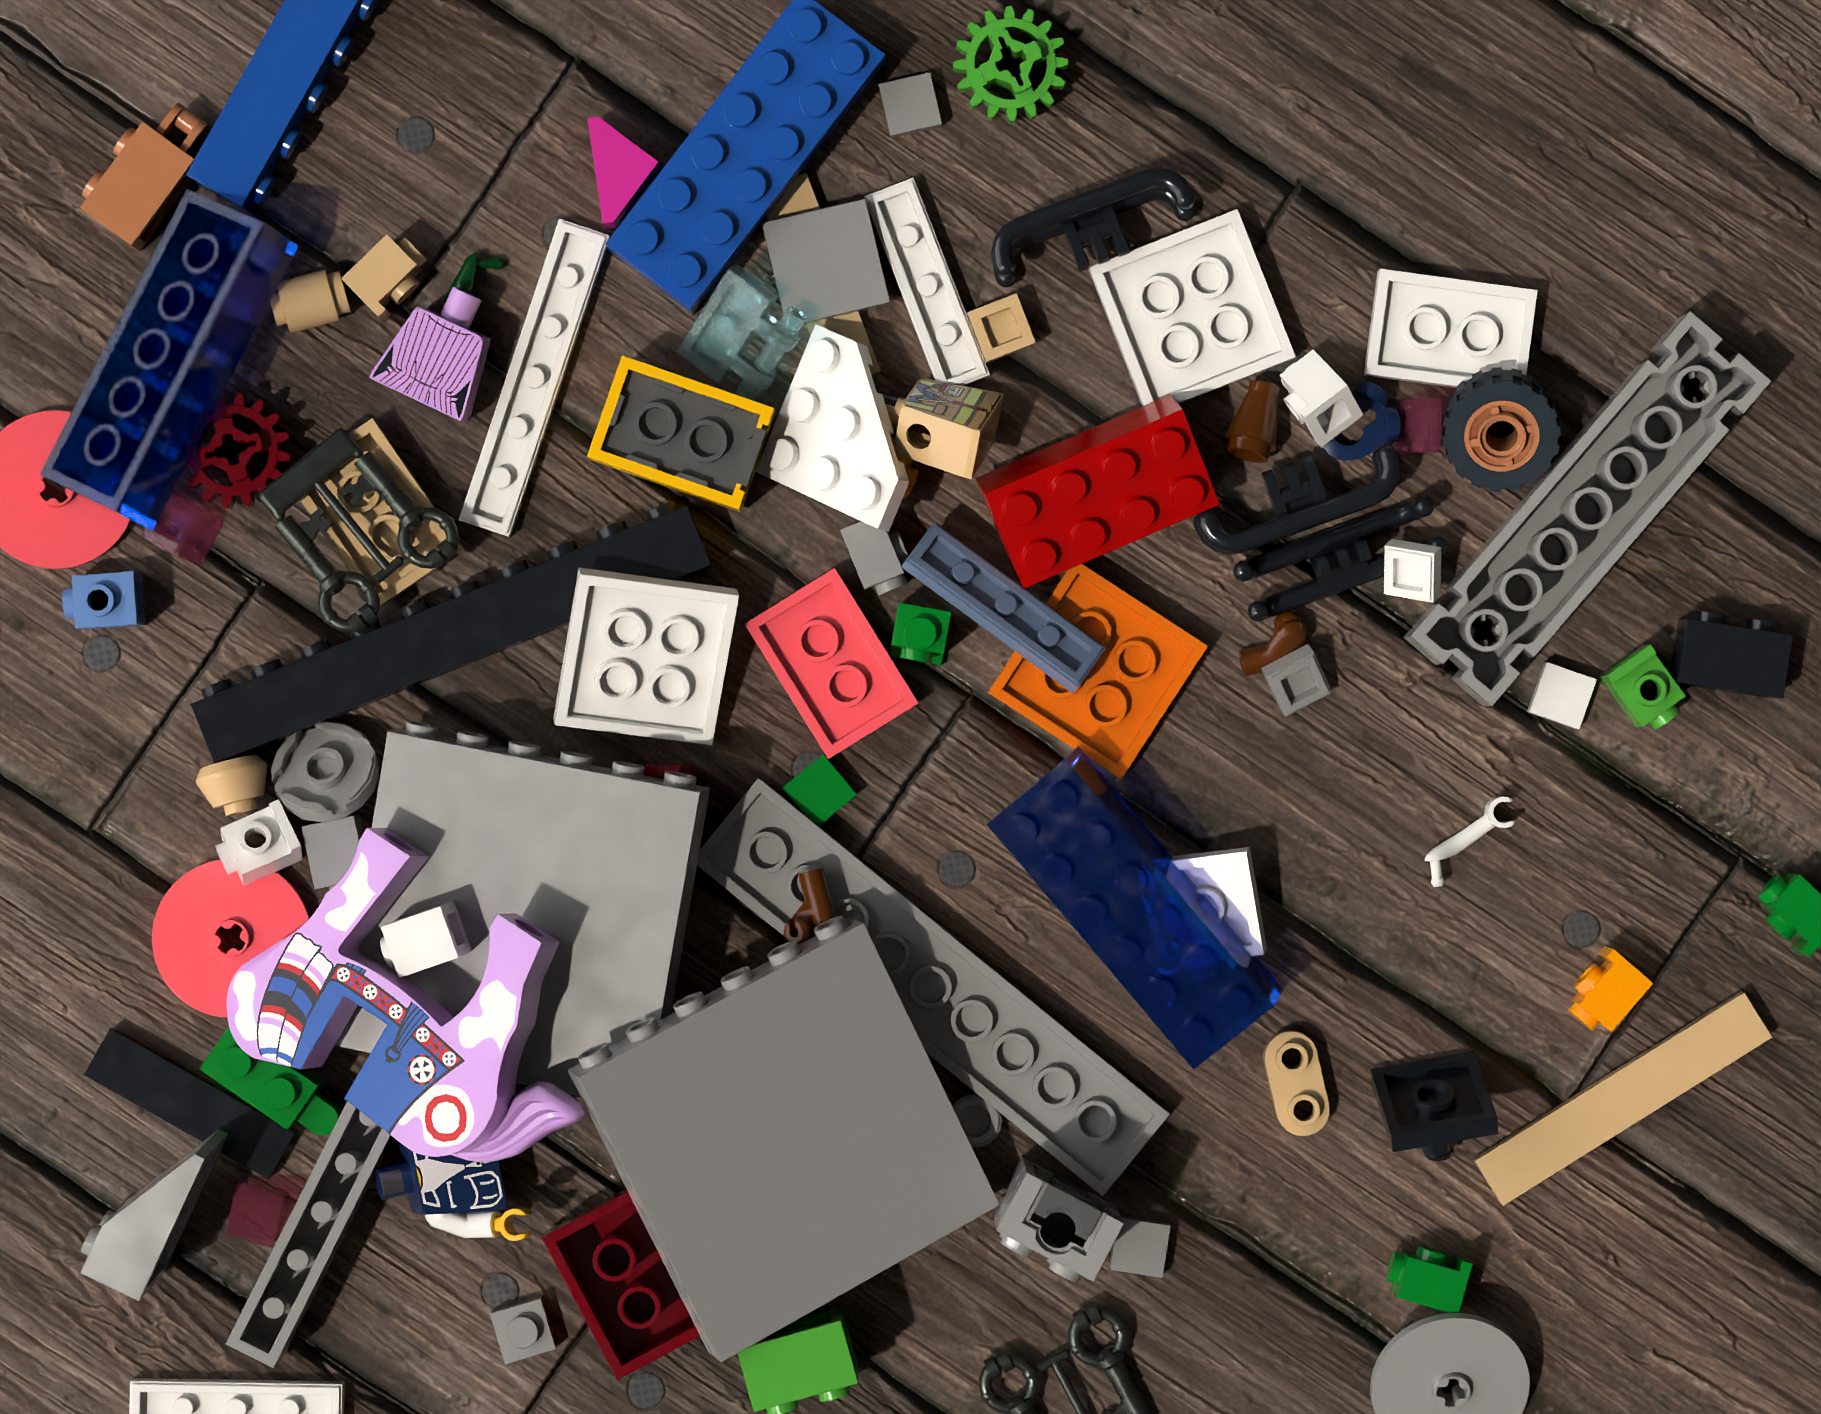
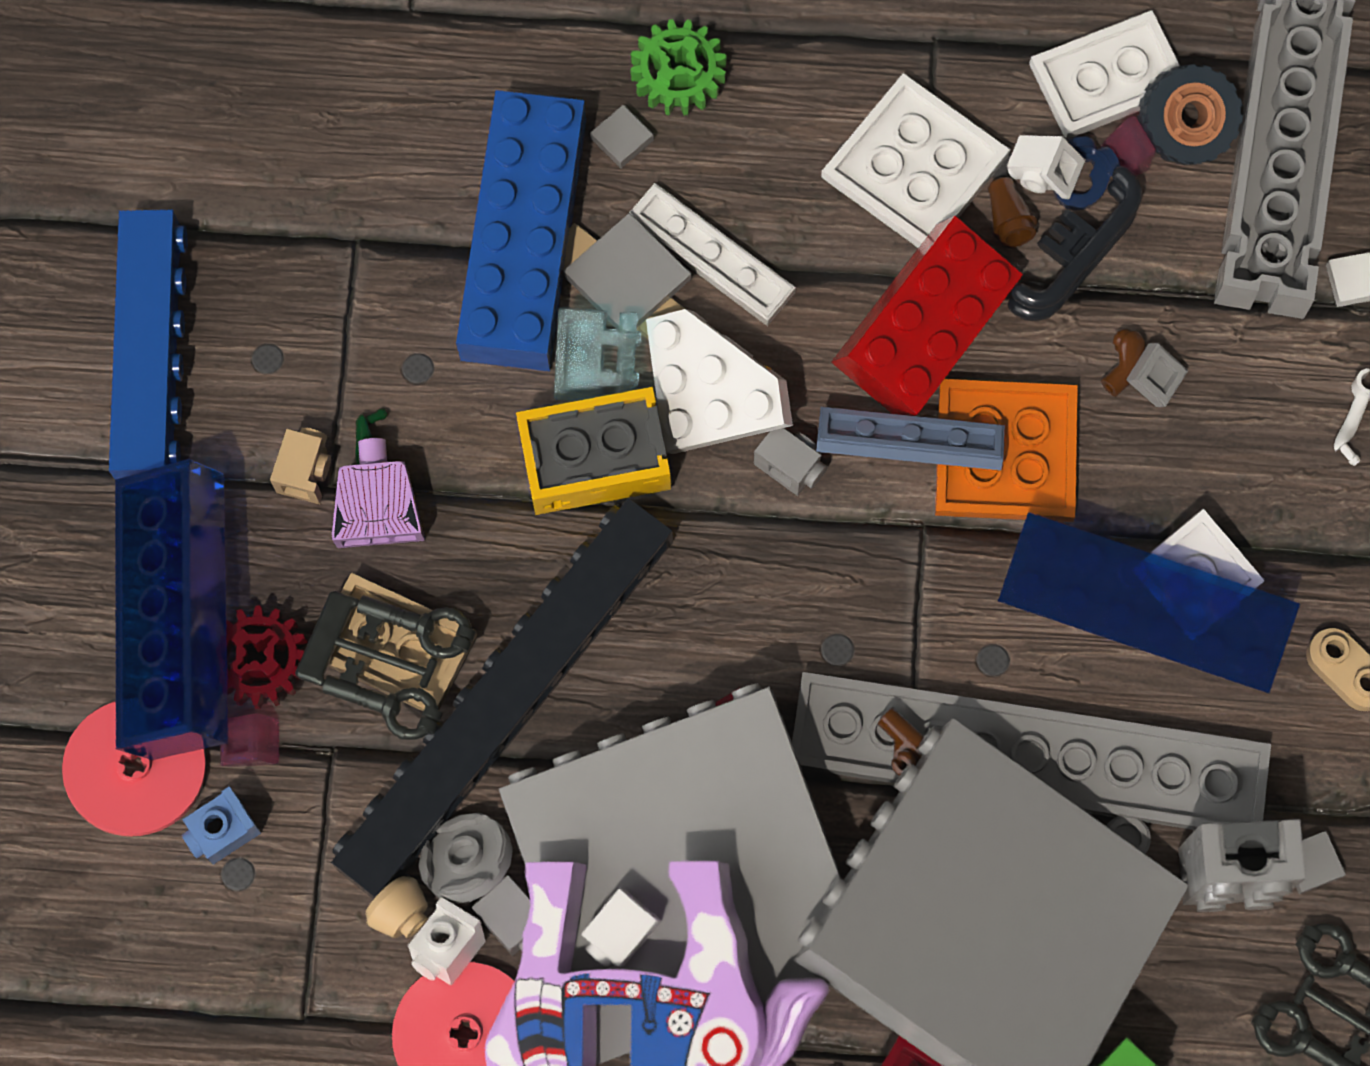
camera: 30 degrees left, 15 degrees down
(144, 177) = (77, 496): nougat brick -> none
(310, 300) = (255, 515): tan brick -> none
(534, 378) = (458, 481): white tile -> none
(620, 170) = (435, 292): dark pink slope -> none
(645, 656) = (663, 626): white plate -> none
(819, 790) = (854, 657): green tile -> none
(831, 663) = (806, 558): coral plate -> none
(920, 634) = (859, 496): green brick -> none
(945, 425) = (800, 331): tan torso -> none
(1001, 328) = (784, 249): tan plate -> none
(1090, 219) = (803, 136): black piece -> none
(1337, 558) = (1133, 271): black piece -> none
(1412, 570) = (1191, 247): white tile -> none

